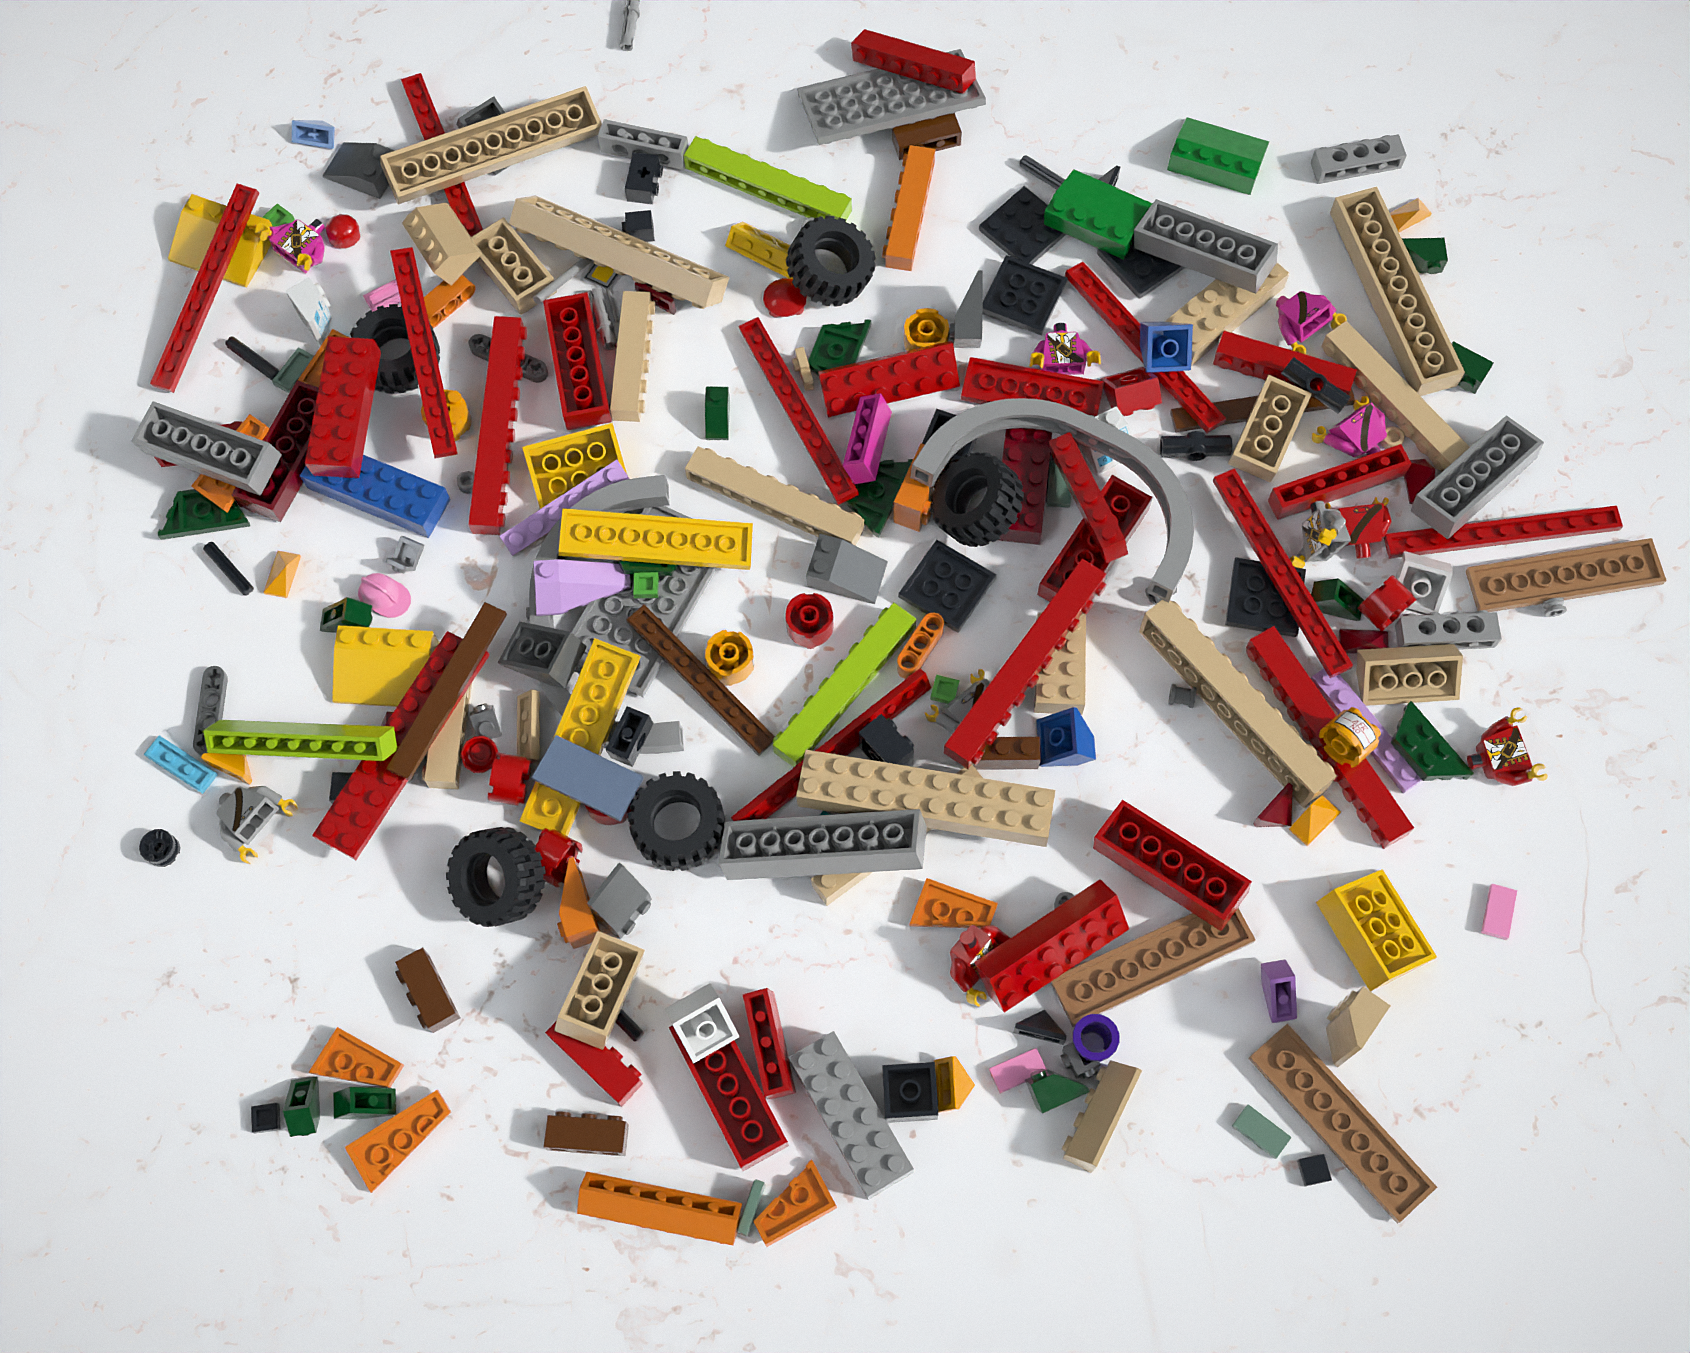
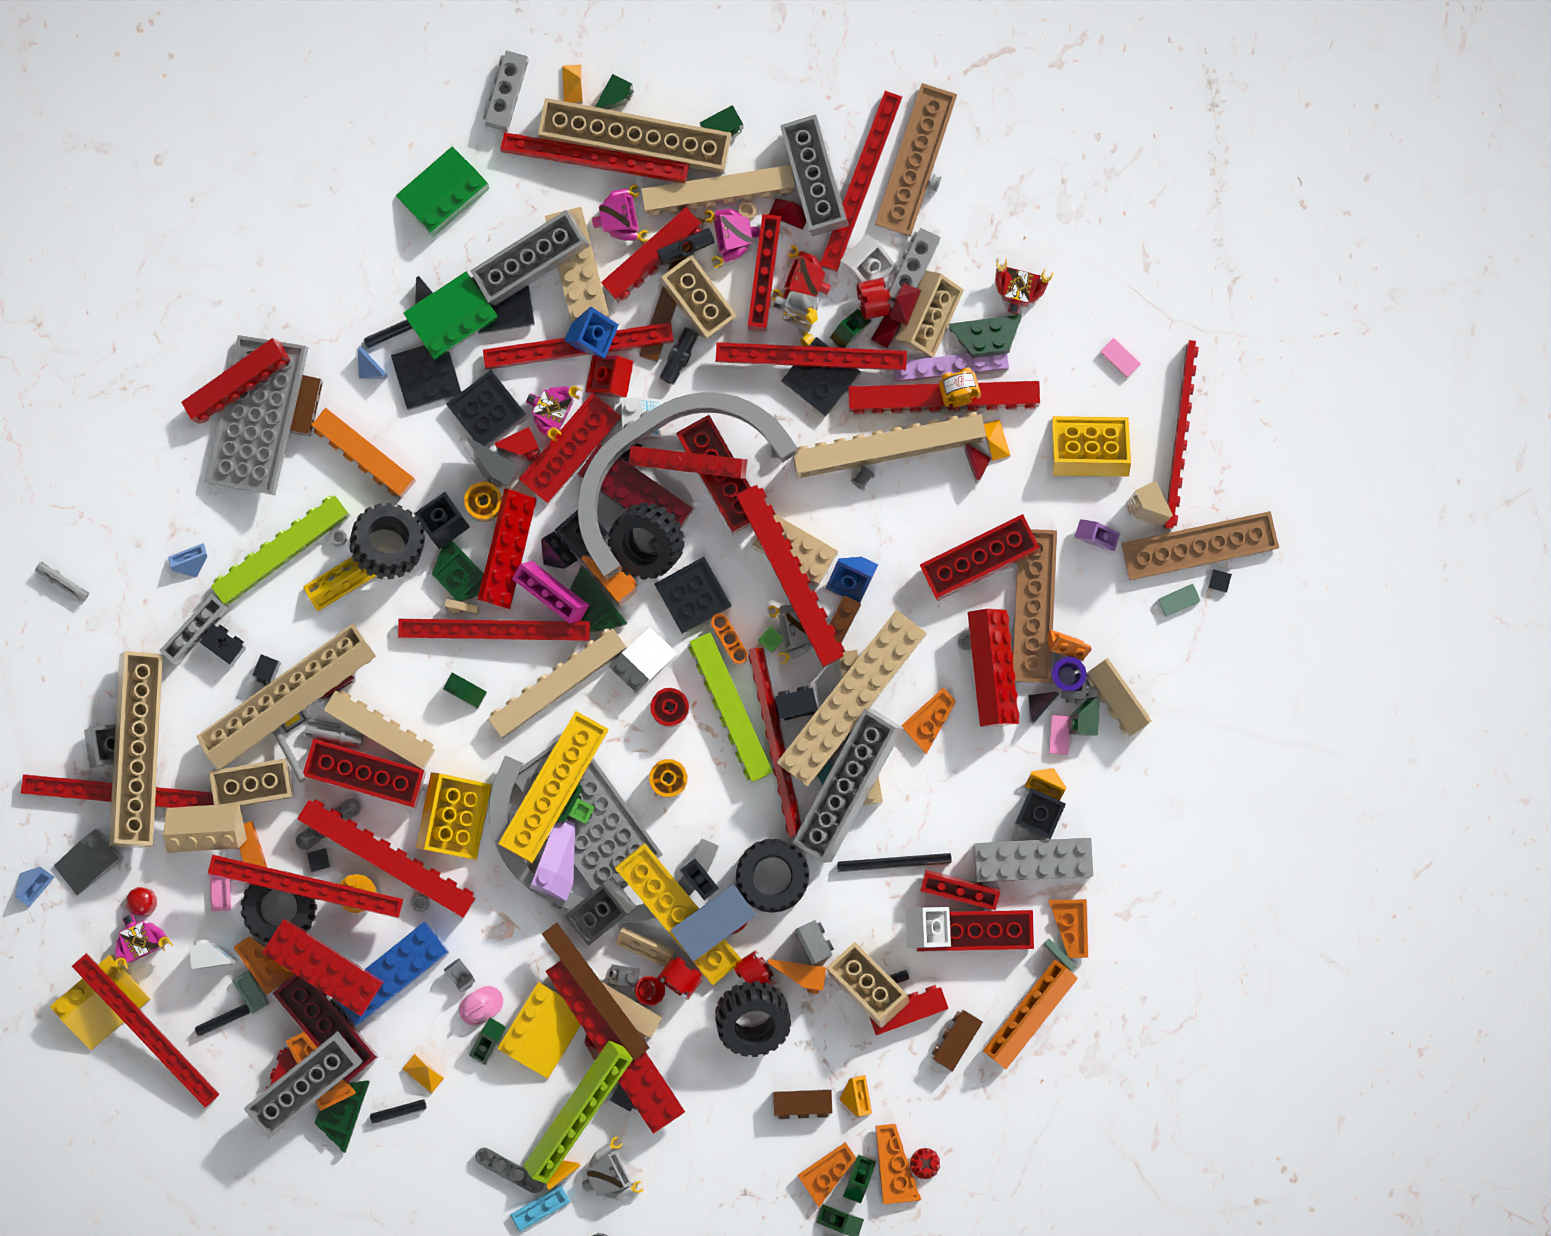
camera: 65 degrees left, 15 degrees up
(279, 216) = (102, 947): bright green plate -> none
(411, 1163) = (916, 1163): none -> red gear
(464, 1051) = (856, 1096): none -> light orange slope
(466, 367) = (318, 859): none -> black tile
(545, 518) = (483, 841): lavender plate -> none
(701, 680) = (673, 807): reddish brown tile -> none
(711, 114) = (189, 560): none -> medium blue slope
(764, 954) = (894, 862): none -> black axle
(784, 299) = (389, 592): red dish -> none
(882, 304) = (442, 520): none -> black brick
(913, 429) = (556, 553): none -> black slope
(970, 947) = (968, 722): red torso -> none
(1000, 172) = (368, 367): none -> medium blue slope
(1006, 336) = (519, 445): none -> red slope
(1057, 490) = (660, 476): sand green tile -> none
(1128, 1020) = (1068, 645): none -> orange bracket
(1348, 267) = (594, 157): none -> red plate
(1403, 636) = (905, 304): none -> dark red slope
(1447, 1032) = (1182, 426): none -> red plate

